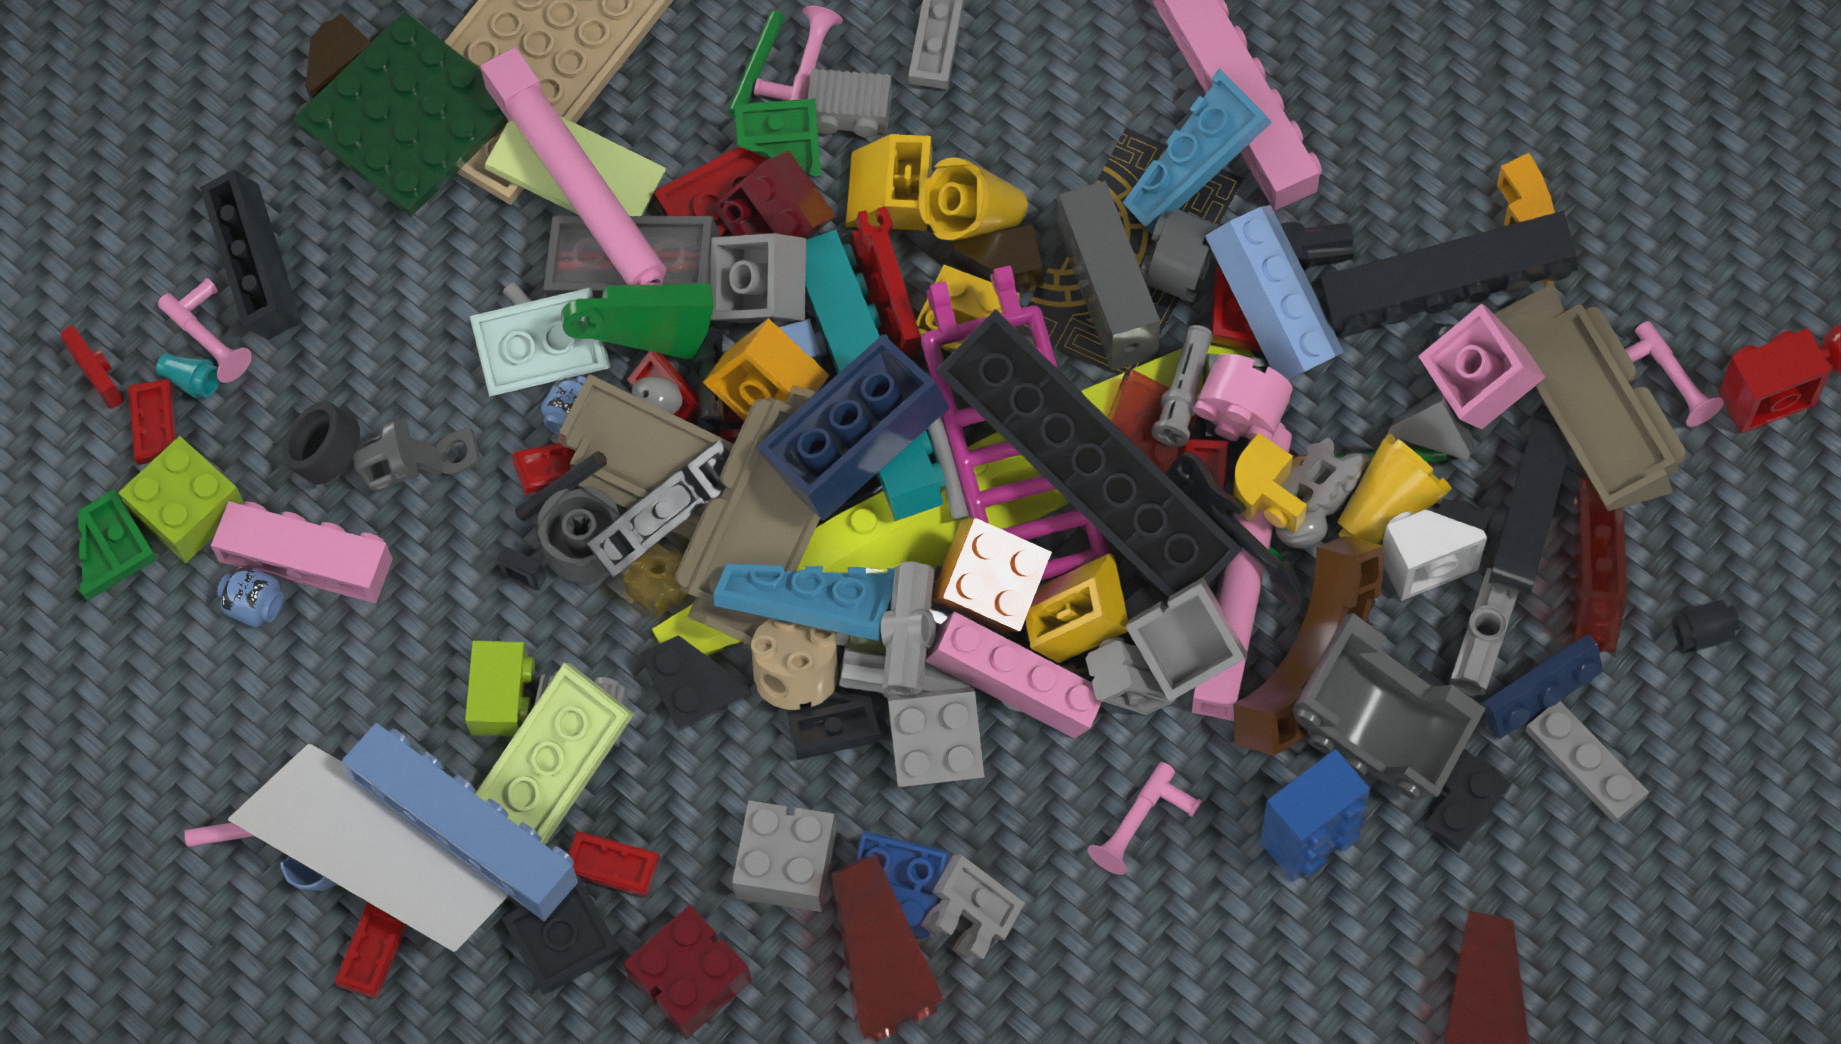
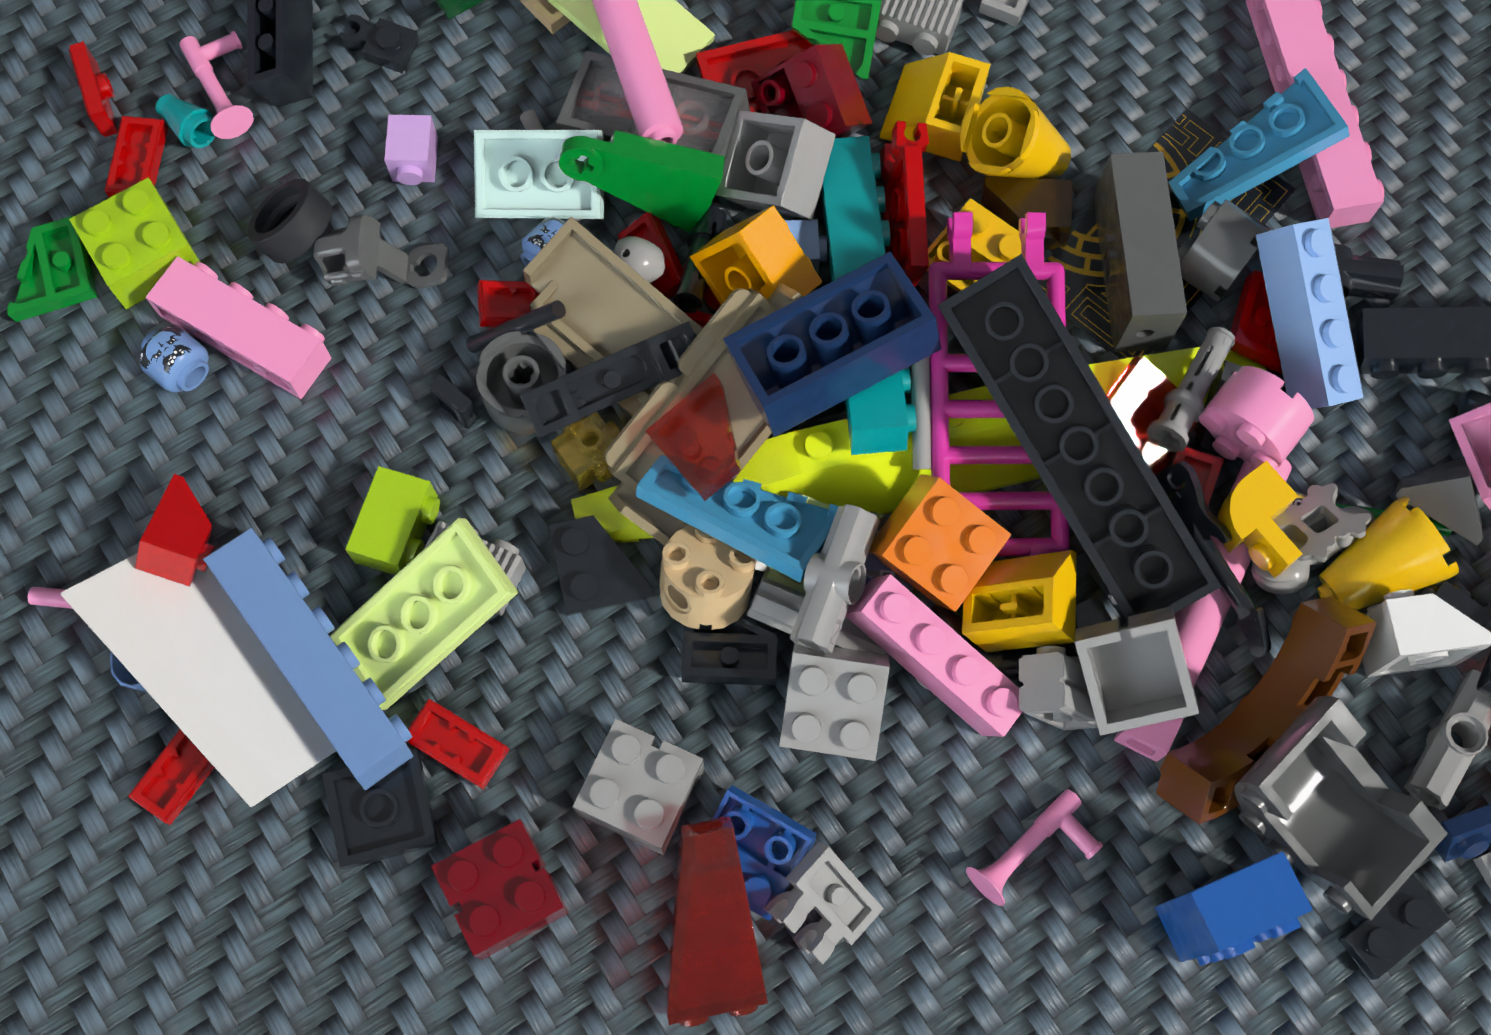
camera: 10 degrees right, 5 degrees up
(309, 749) = (176, 536): none -> red slope
(353, 255) = (384, 44): none -> black plate
(411, 348) = (411, 149): none -> lavender brick
(757, 539) = (700, 438): none -> clear red wing

